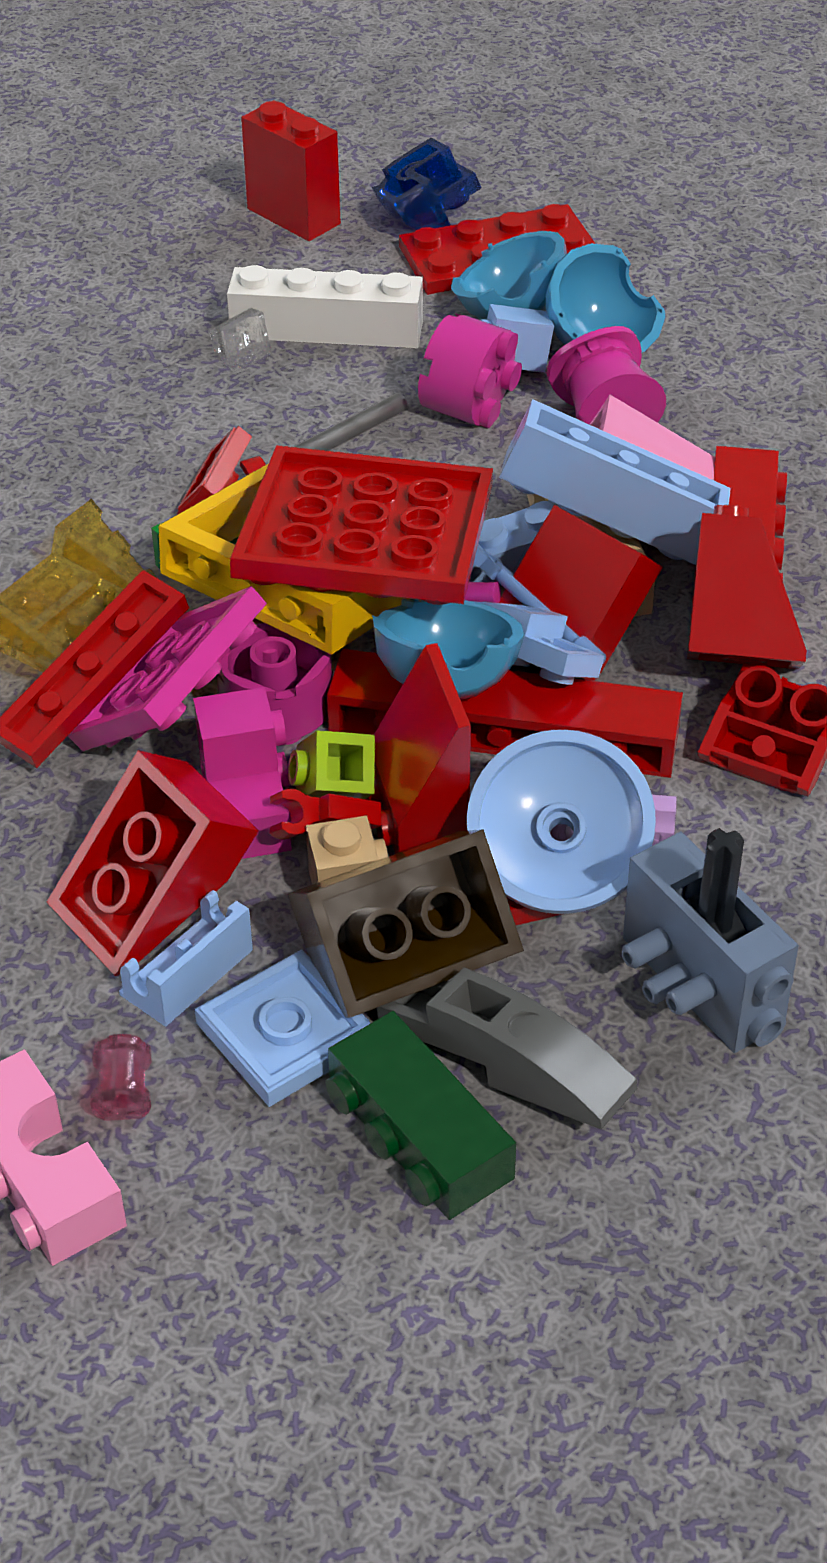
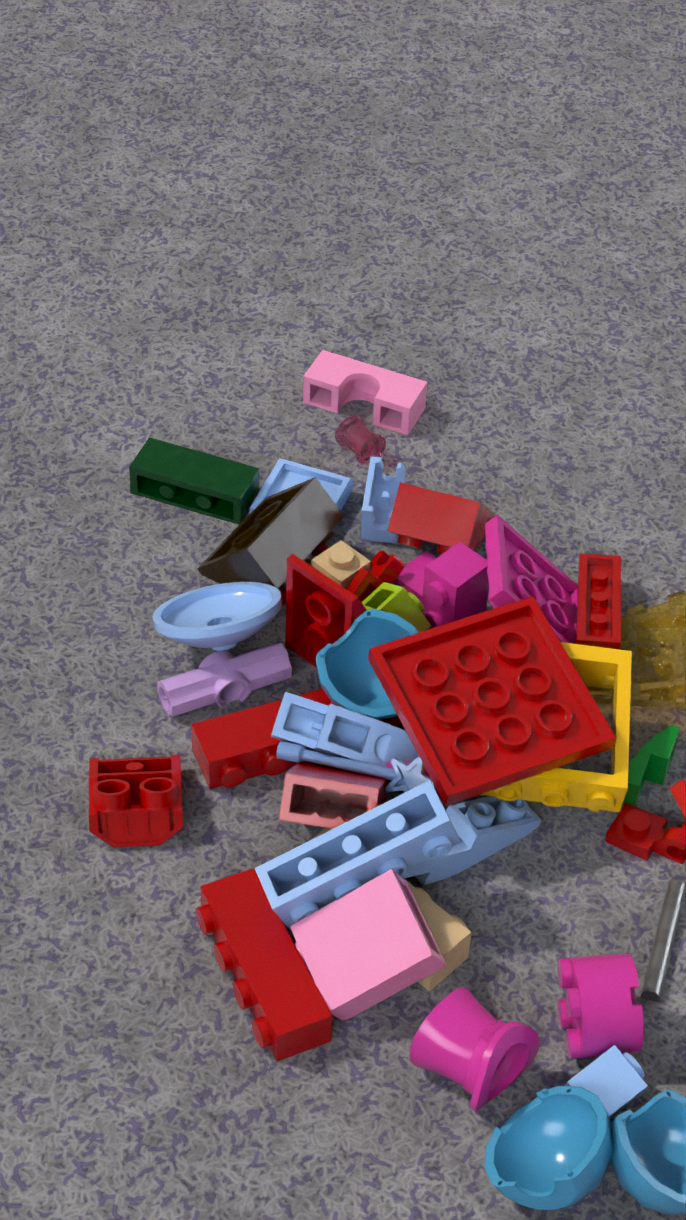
camera: 145 degrees right, 0 degrees up
(521, 1045) = (163, 518): dark grey slope -> none
(708, 939) = (89, 597): sand blue piece -> none
(740, 596) = (202, 829): red slope -> none

